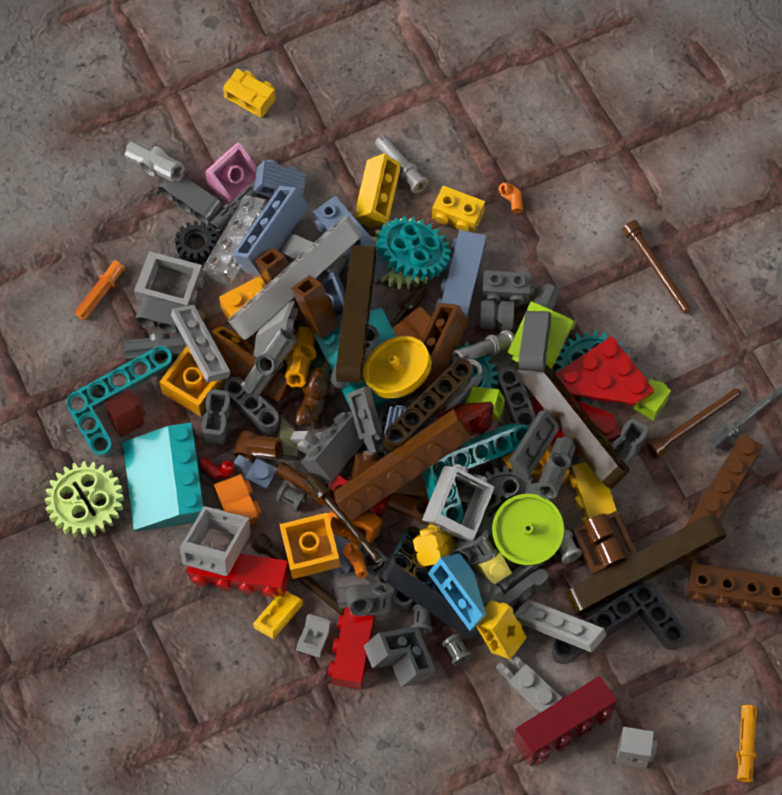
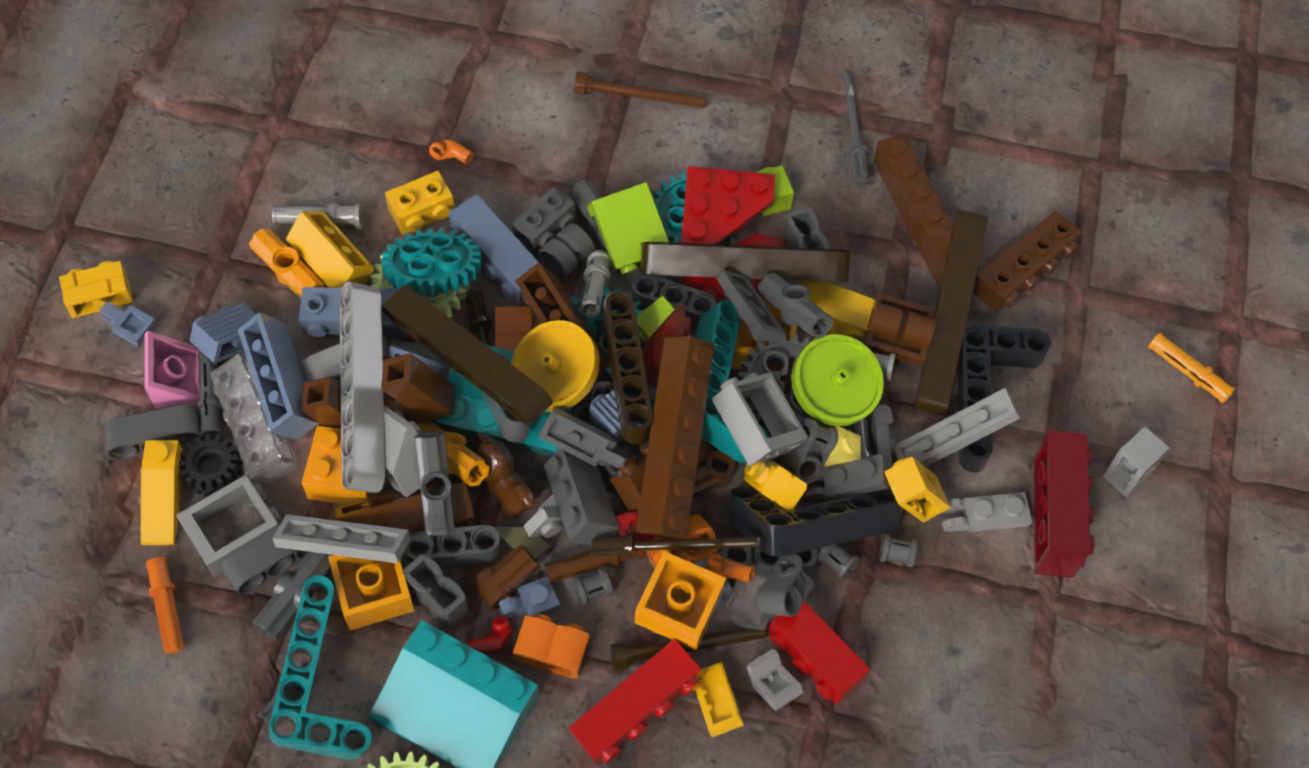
camera: 55 degrees left, 5 degrees down
(125, 412) = (343, 683): clear red brick -> none
(154, 161) = (76, 432): light grey piece -> none
(159, 231) = (160, 491): none -> yellow slope
(211, 559) = (604, 719): light grey window -> none
(244, 128) = (128, 324): none -> sand blue plate
(353, 165) = (278, 256): none -> light orange piece
(404, 651) = (873, 602): dark grey brick -> none
(460, 588) = (854, 490): dark azure slope -> none
(535, 341) = (640, 226): dark grey beam -> none
(658, 446) = (825, 217): reddish brown piece -> none

